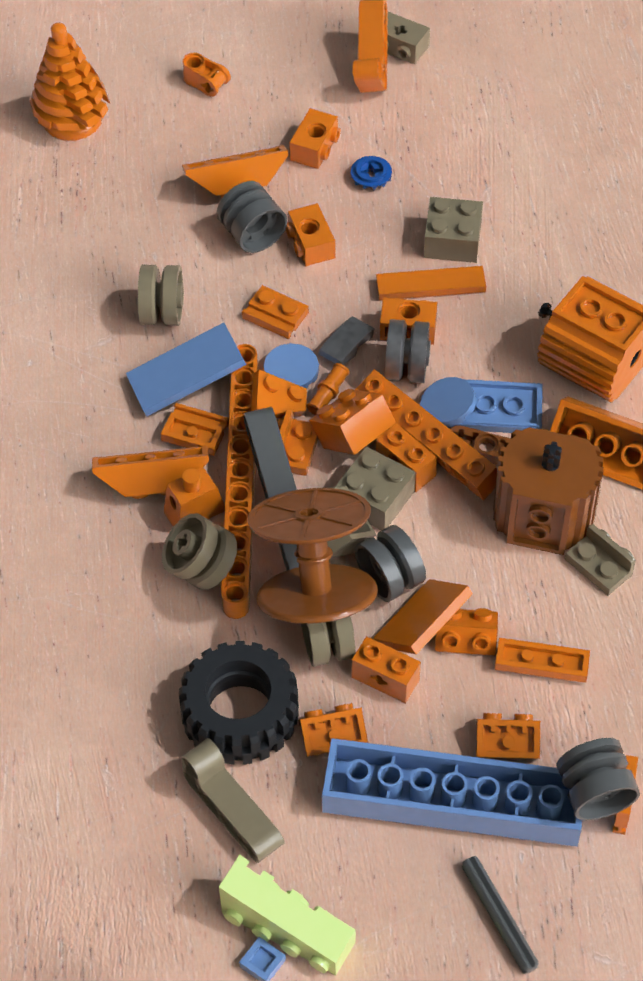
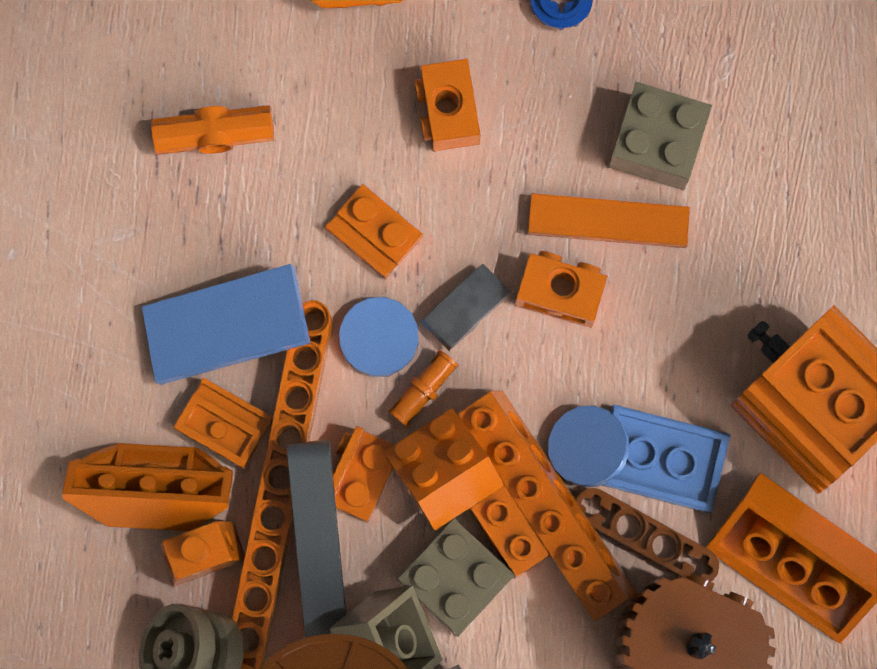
camera: 10 degrees right, 25 degrees up
(128, 276) = (212, 130): none -> orange piece
(160, 293) = (208, 190): dark tan wheel -> none
(251, 216) = (365, 67): dark grey wheel -> none
(278, 394) = (344, 399): orange wing -> none
(409, 351) = (546, 358): flat silver wheel -> none

